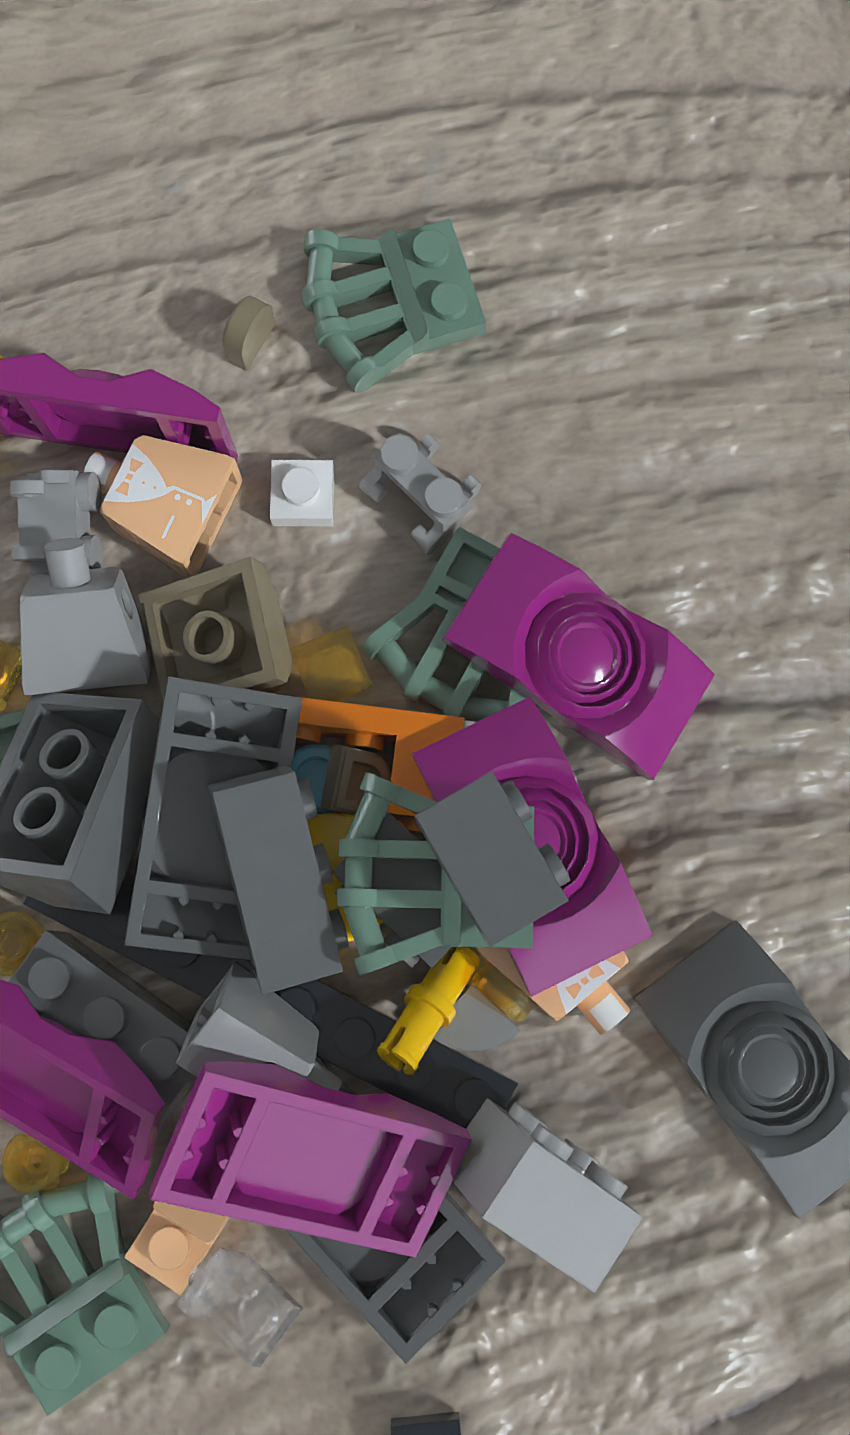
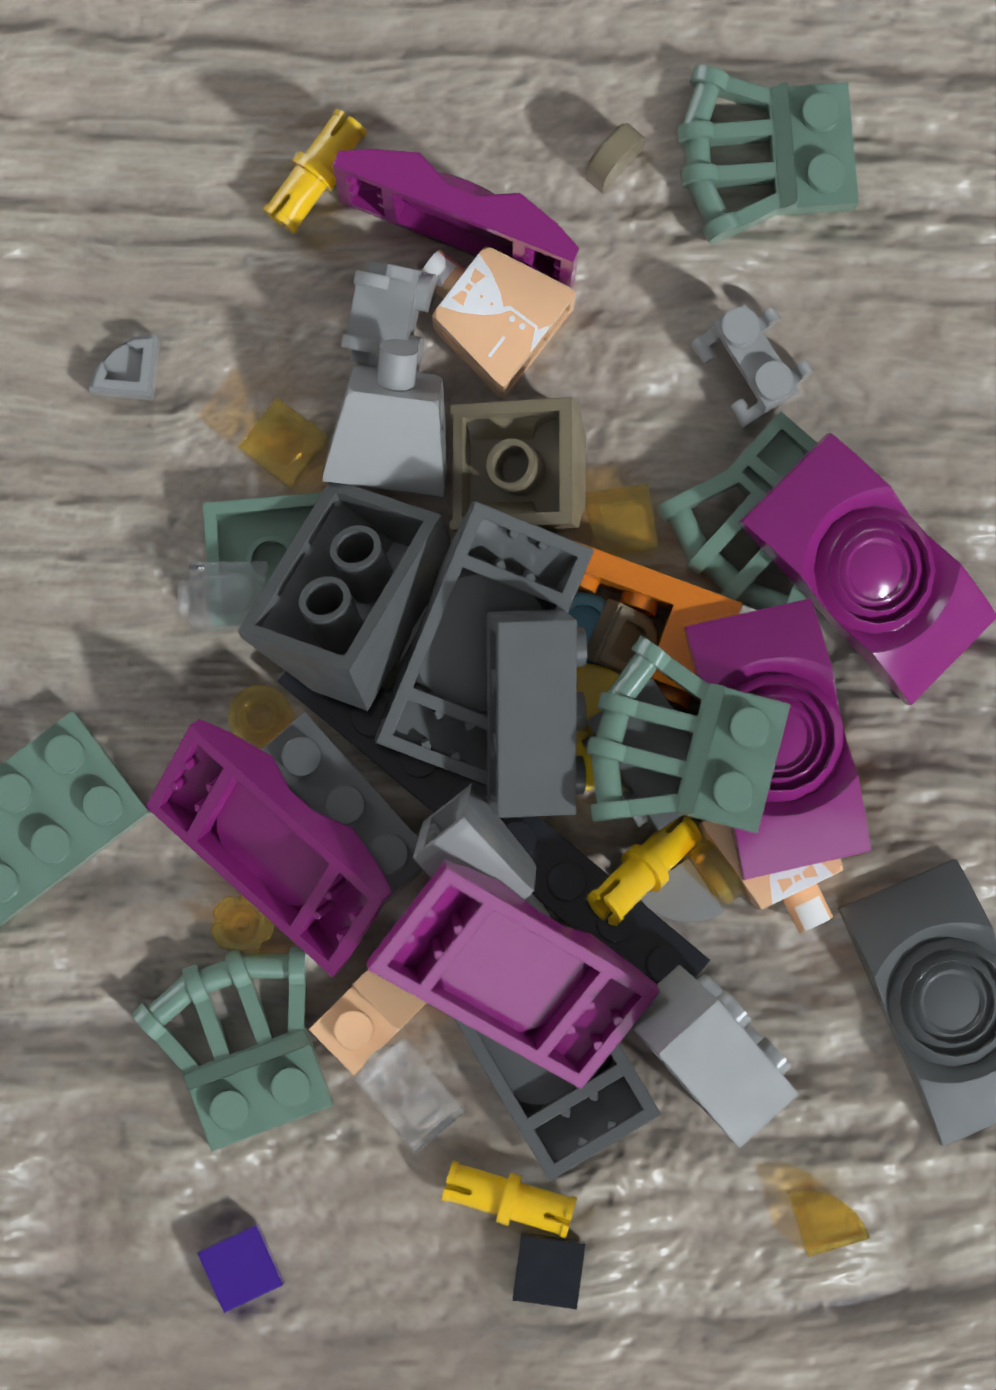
camera: 10 degrees right, 5 degrees up
(302, 493) = (632, 336): white plate -> none
(369, 1389) = (509, 1198): none -> yellow pin
(493, 857) = (743, 741): dark grey brick -> none
(700, 1330) = (825, 1221): none -> clear yellow tile

